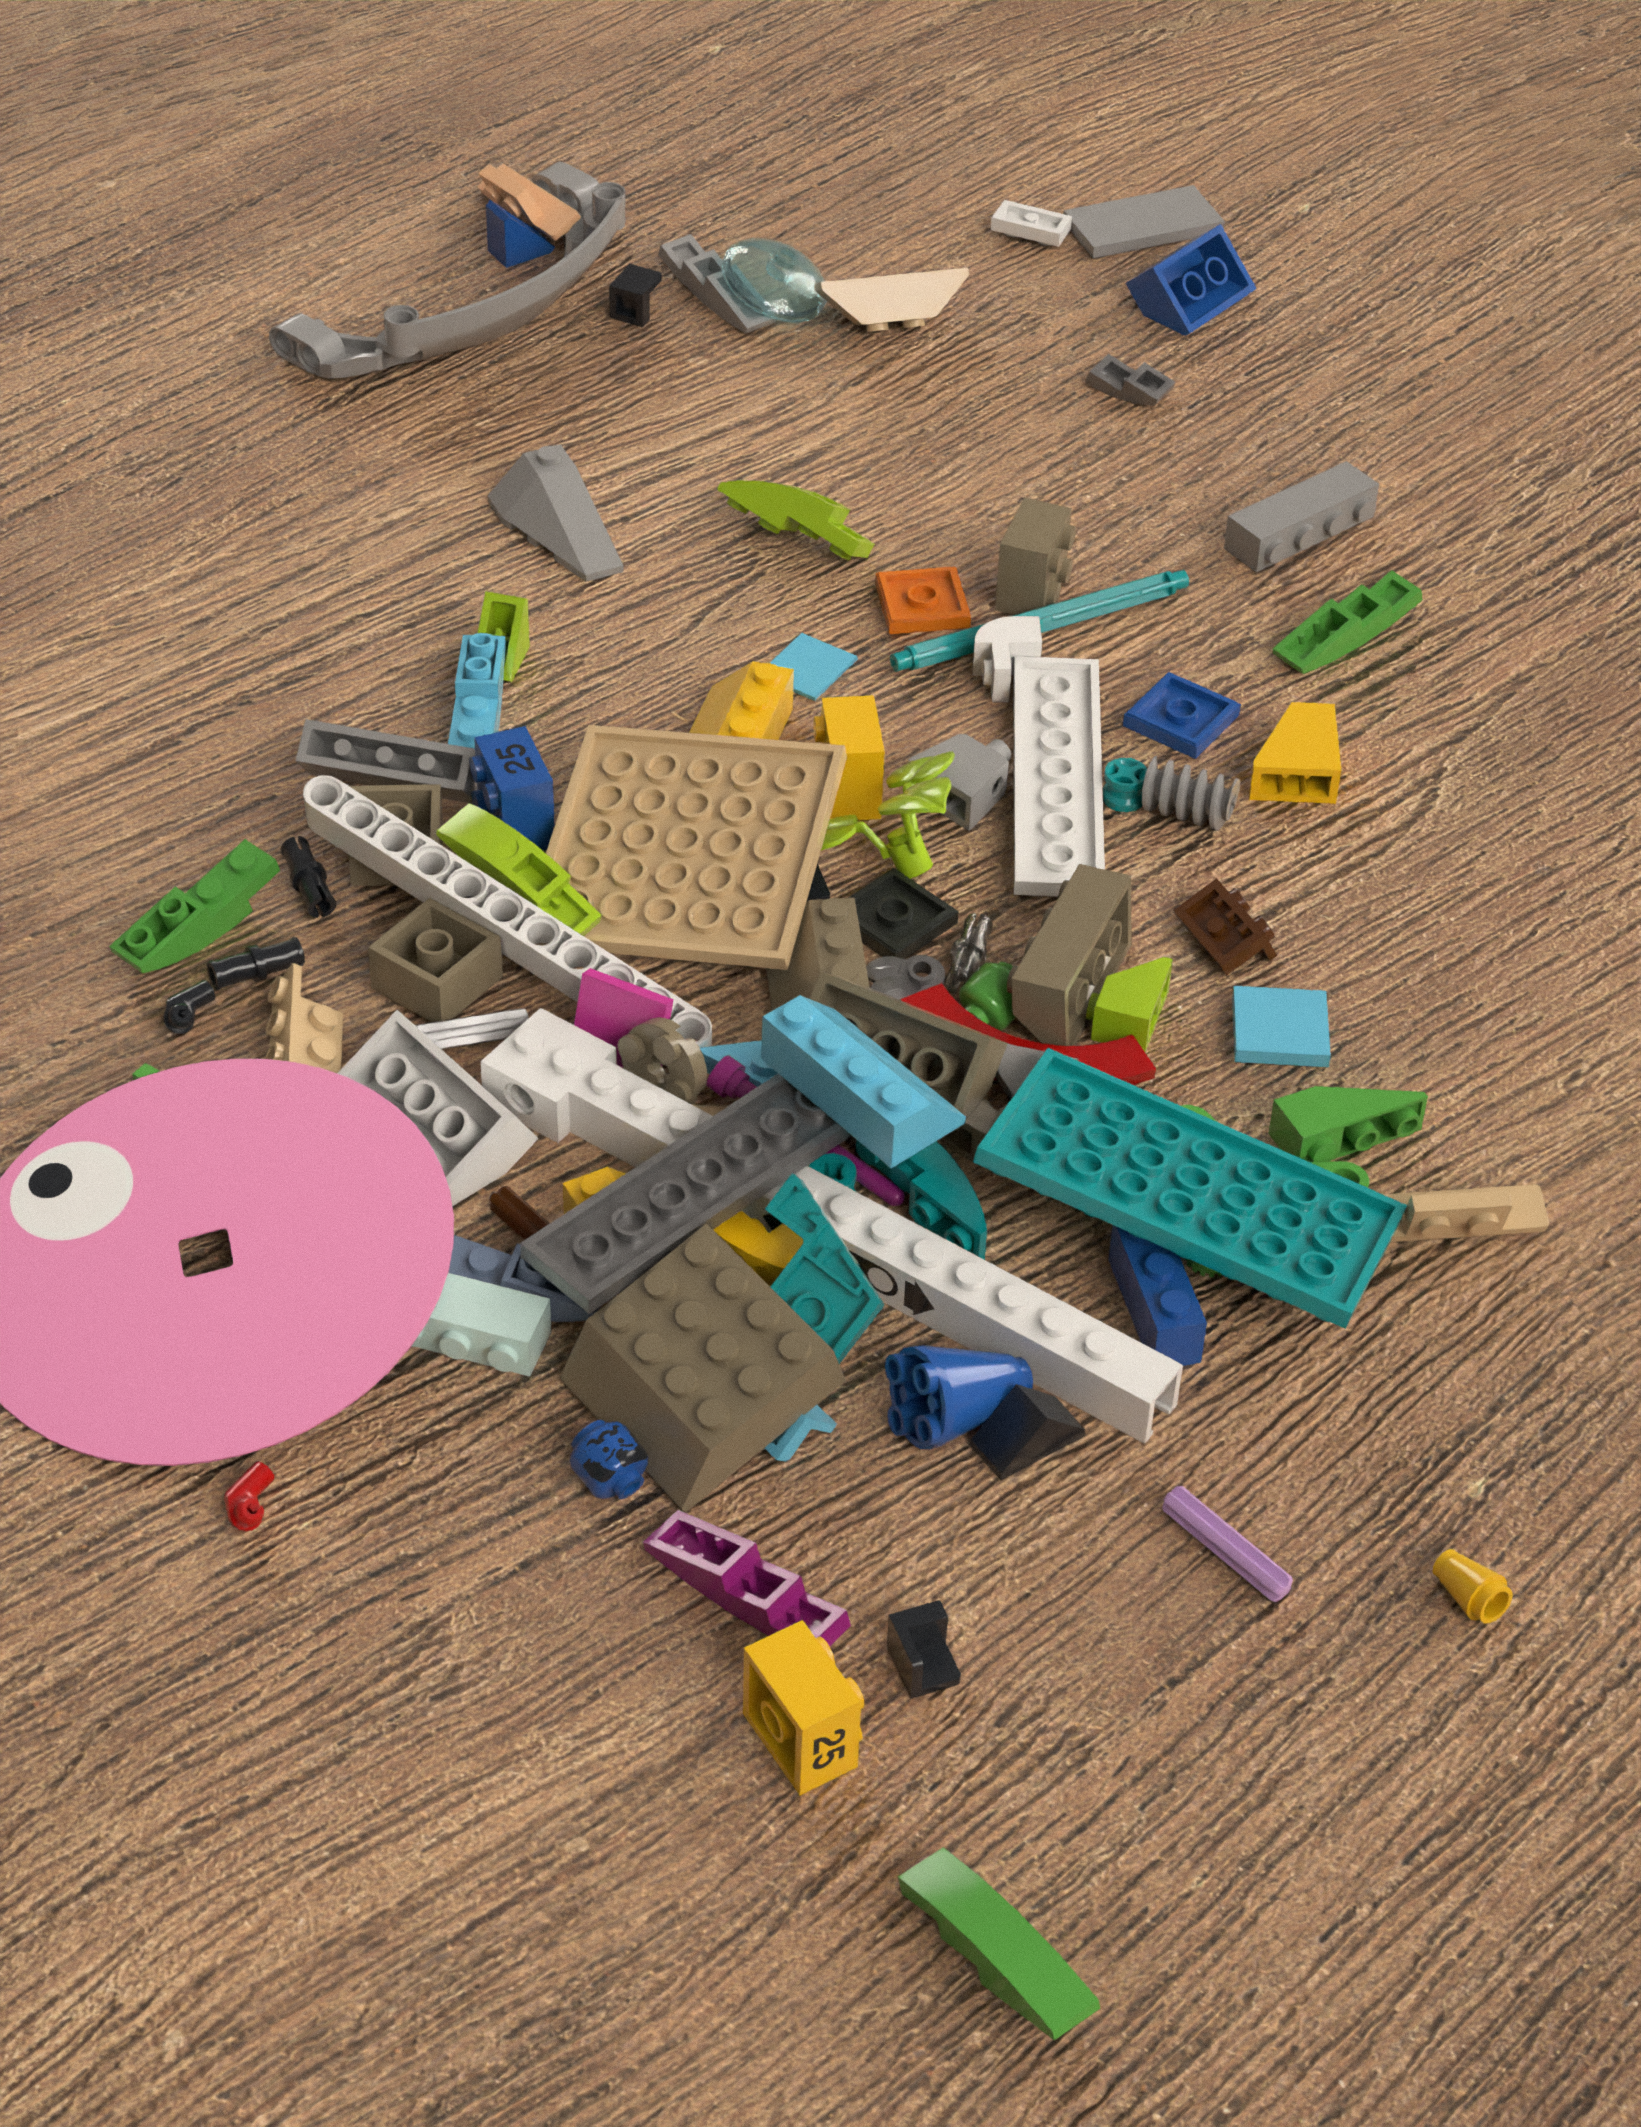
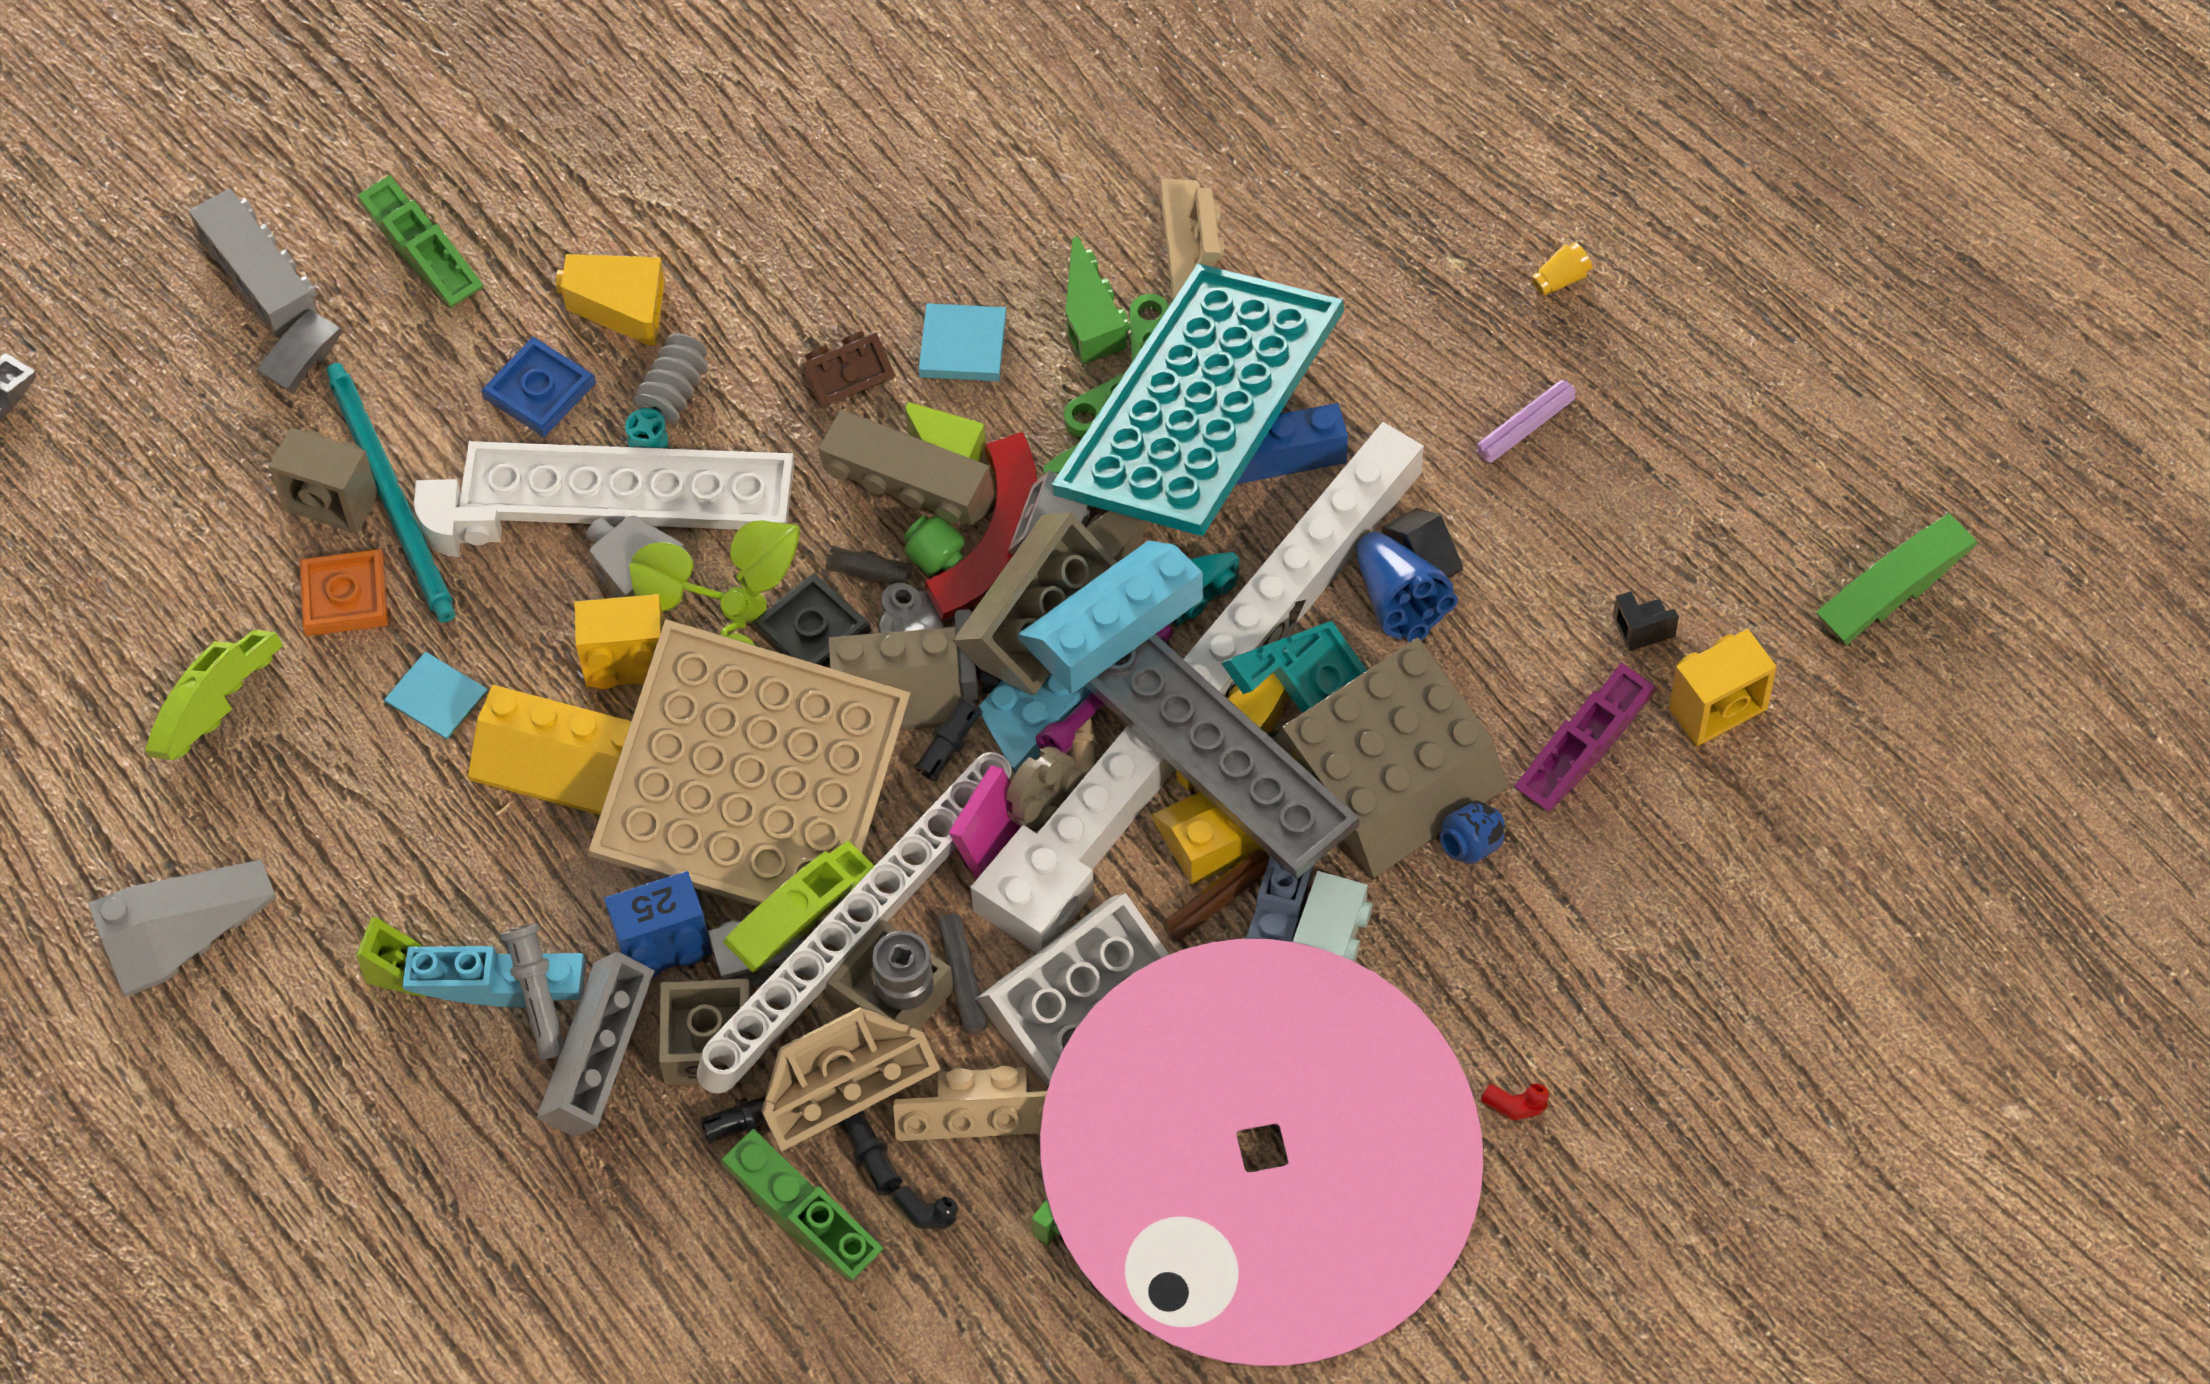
camera: 85 degrees left, 15 degrees up
(324, 912) = (842, 1073): none -> tan wedge
(419, 929) = (903, 970): none -> flat silver wheel
(462, 700) = (531, 970): none -> light grey pin
(741, 1010) = (948, 739): none -> black pin
(1209, 554) = (295, 352): none -> flat silver slope

